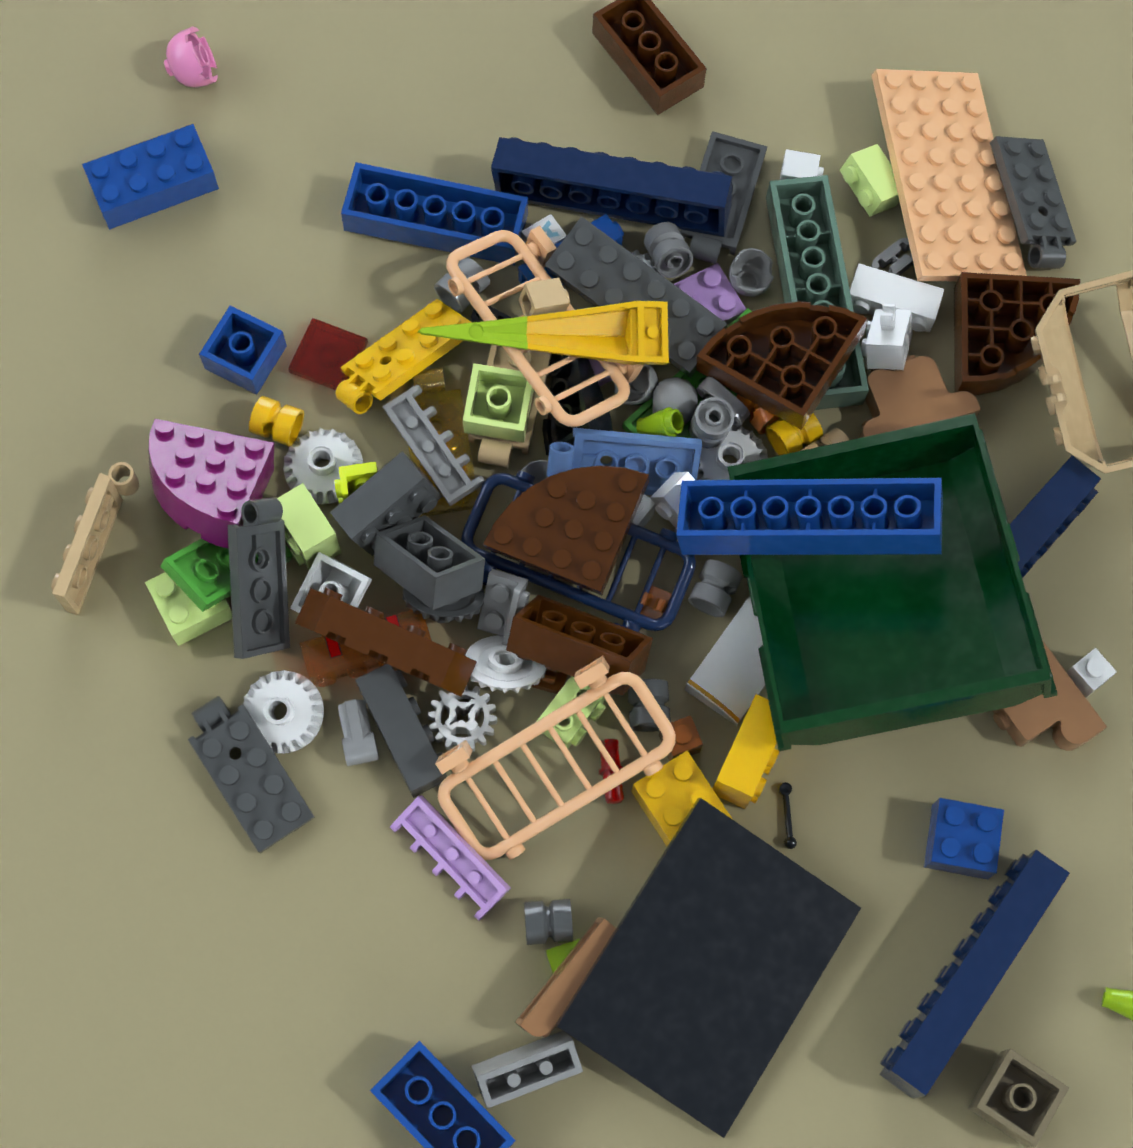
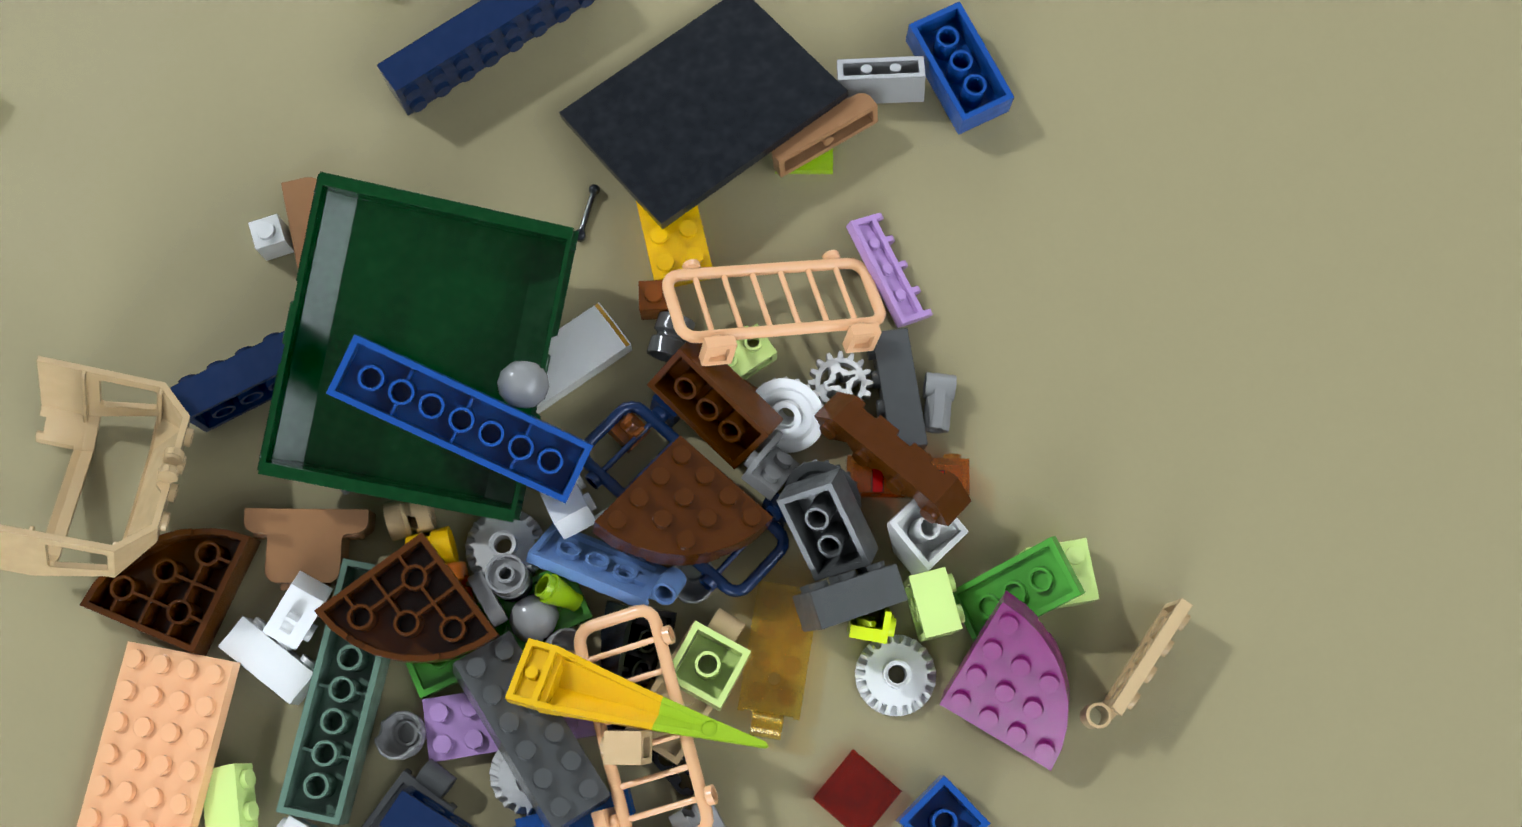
camera: 160 degrees left, 5 degrees up
(253, 784) = (1041, 386): dark grey hinge -> none
(259, 588) = (993, 554): dark grey hinge -> none
(272, 419) = (929, 733): yellow wheel -> none
(303, 713) = (989, 457): white gear -> none
(405, 353) = (757, 776): yellow hinge -> none
(431, 447) = (788, 648): light grey hinge -> none
(548, 921) = (823, 187): dark grey wheel -> none
(616, 794) = (721, 306): red axle -> none
(668, 250) = (474, 789): light grey wheel -> none
(716, 585) = (573, 418): light grey wheel -> none
(749, 757) = (603, 260): yellow brick -> none
(767, 574) = (523, 384): none -> light grey hair
(890, 256) = (253, 712): light grey beam -> none
(964, 838) = (447, 139): blue brick -> none
(1030, 190) = (72, 730): dark grey hinge -> none

